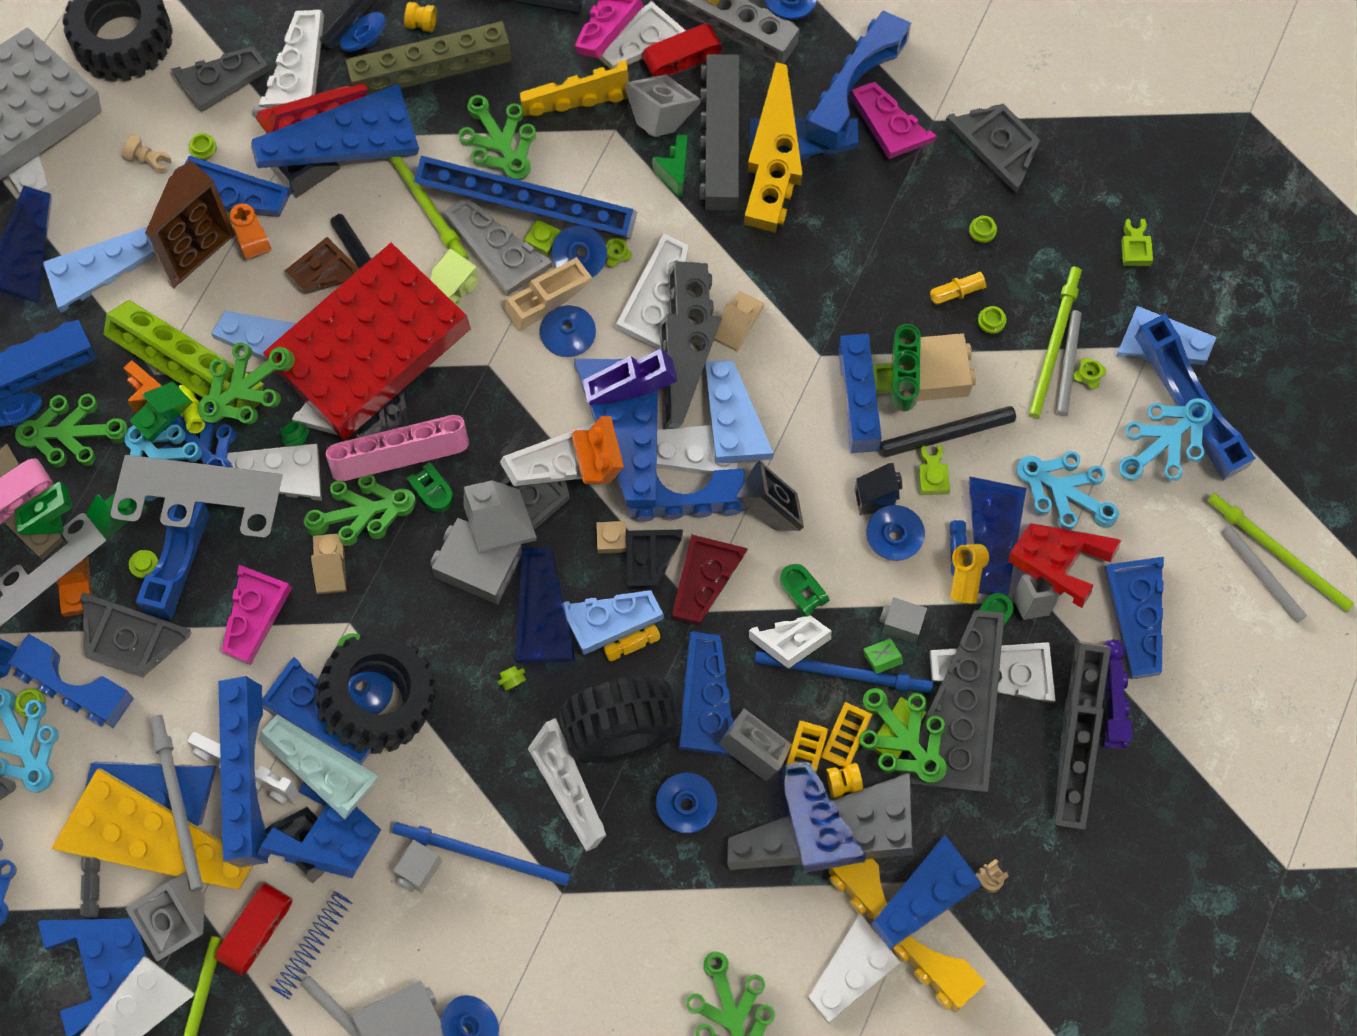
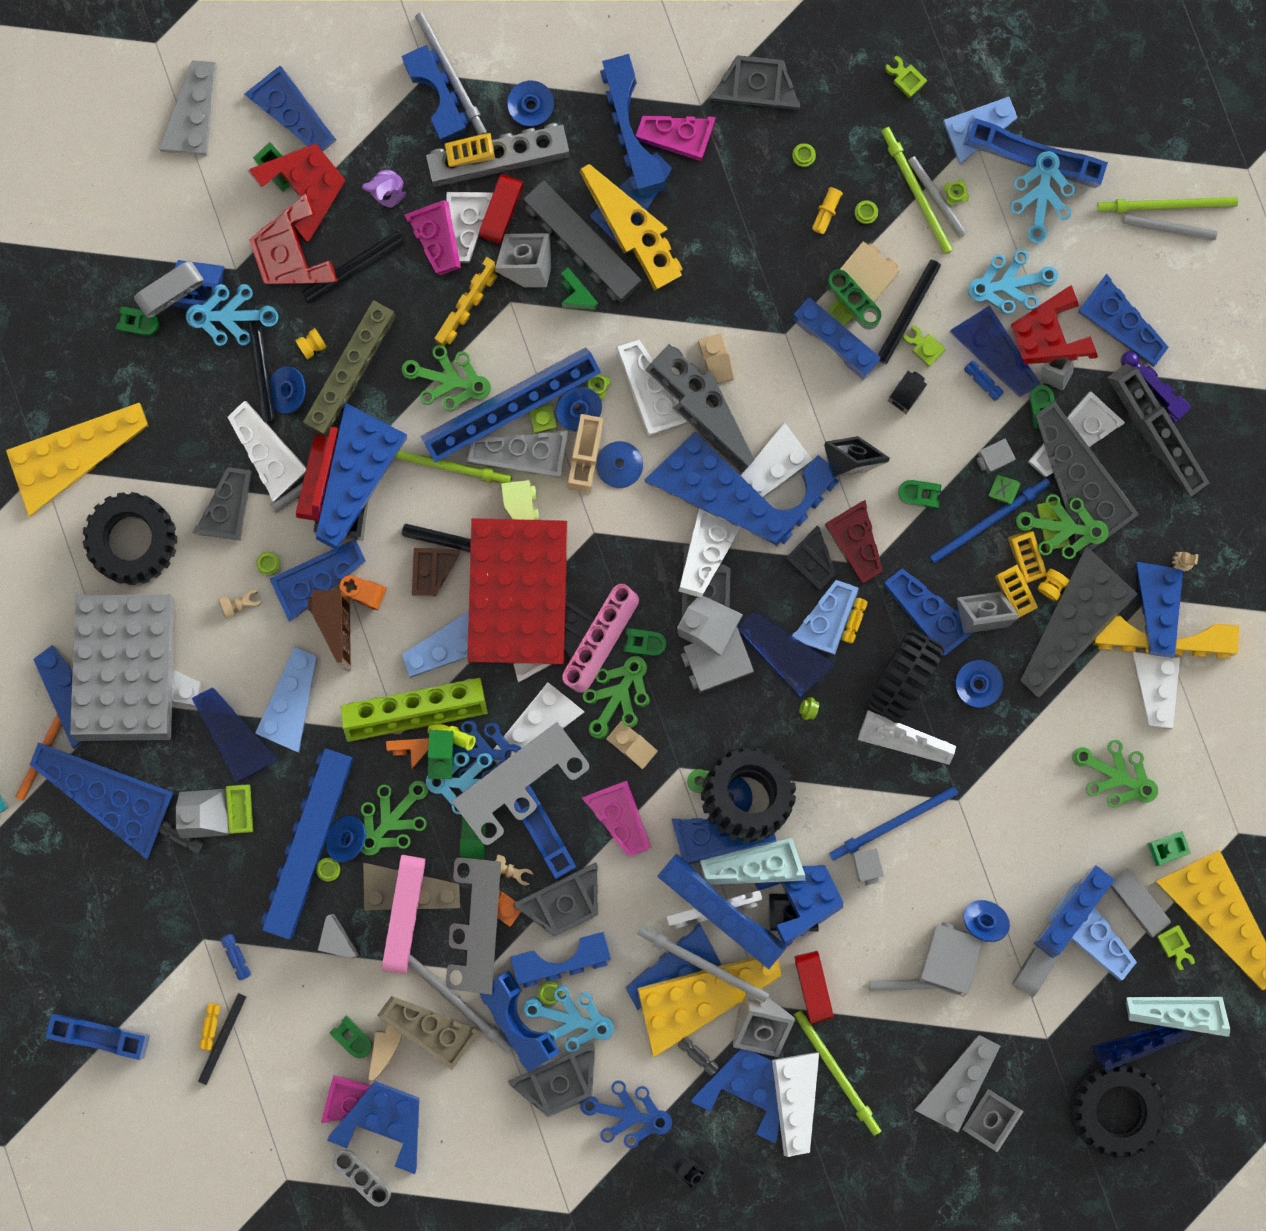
camera: 45 degrees left, 15 degrees up
(44, 511) = (439, 880): green slope -> none
(108, 555) = (510, 871): none -> tan piece
(142, 563) = (525, 852): lime plate -> none
(241, 385) = (478, 695): bright green plant -> none
(294, 434) = (528, 689): green plate -> none
(307, 964) = (853, 982): blue piece -> none
(598, 452) = (727, 528): orange bracket -> none
(611, 537) = (778, 568): tan plate -> none
(630, 378) = (699, 464): dark purple slope -> none
(734, 422) = (780, 428): light blue wing -> none
(791, 639) = (944, 531): white wing -> none
(816, 822) = (1072, 629): clear blue wing -> none
(895, 520) = (940, 395): blue dish -> none
(968, 574) = (1008, 393): yellow piece -> none

